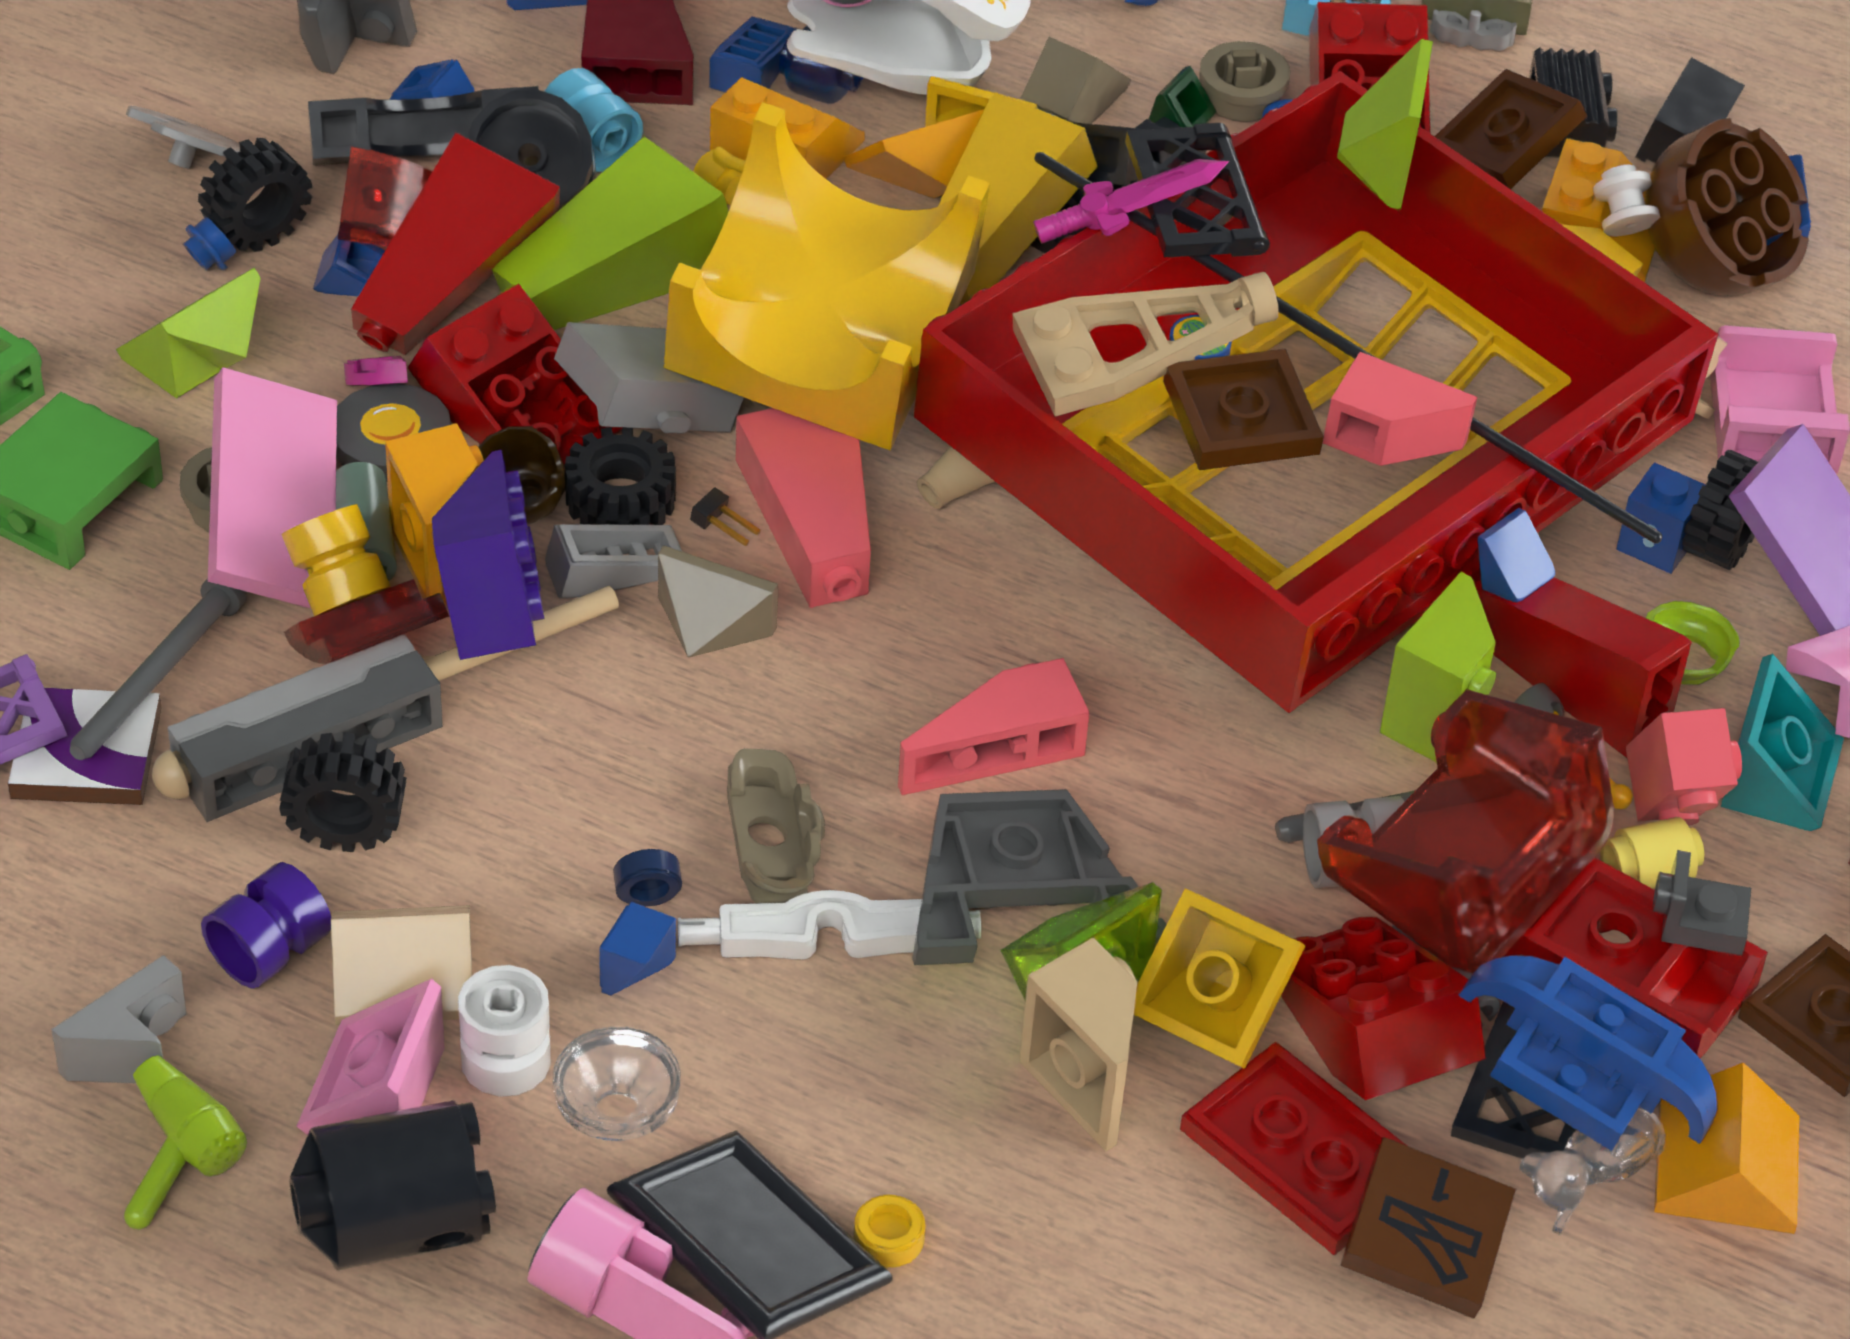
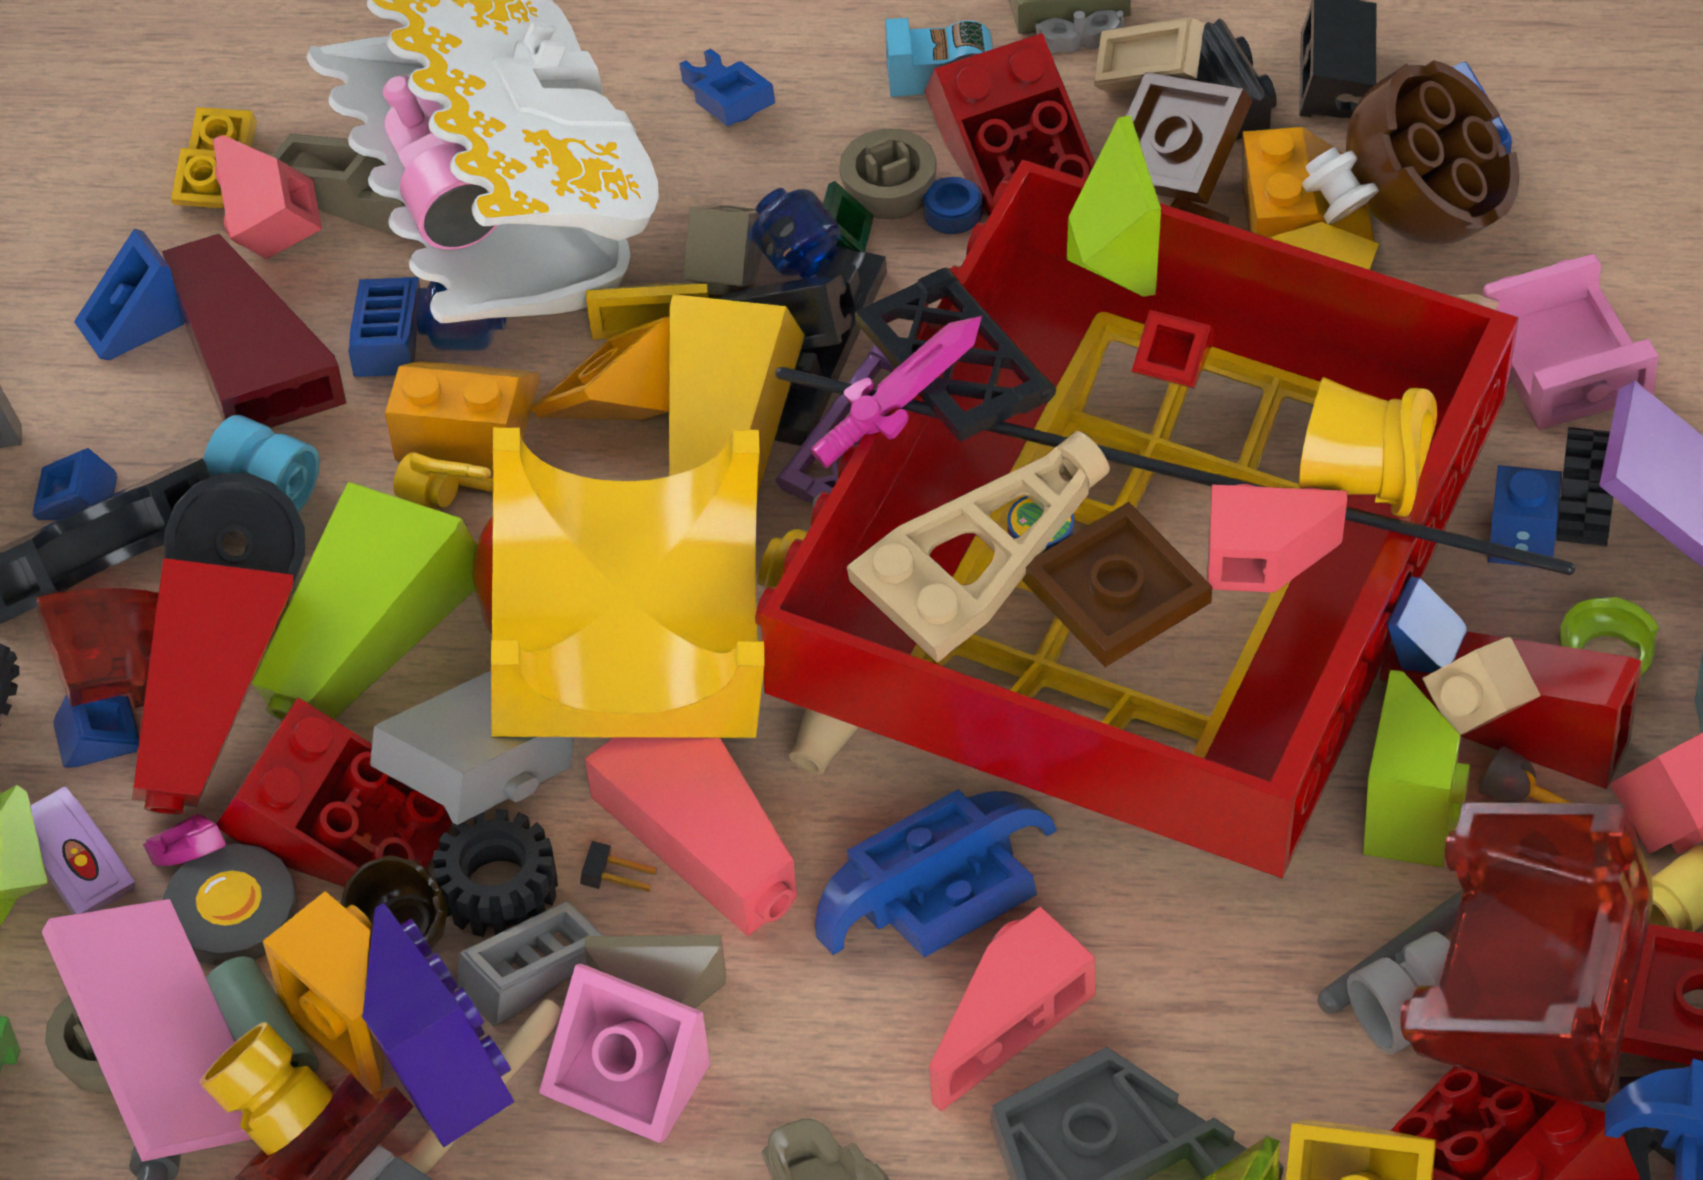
camera: 15 degrees left, 5 degrees up
(284, 344) = (78, 855): none -> lavender slope
(653, 649) = (625, 1054): none -> bright pink slope
(993, 609) = (934, 872): none -> blue plate
(1133, 88) = (795, 232): none -> clear blue head
(1391, 250) = (1173, 349): none -> red slope
(1518, 367) = (1368, 443): none -> yellow hat
(1528, 53) = (1155, 48): none -> tan tile
(1536, 612) = (1482, 686): none -> tan brick

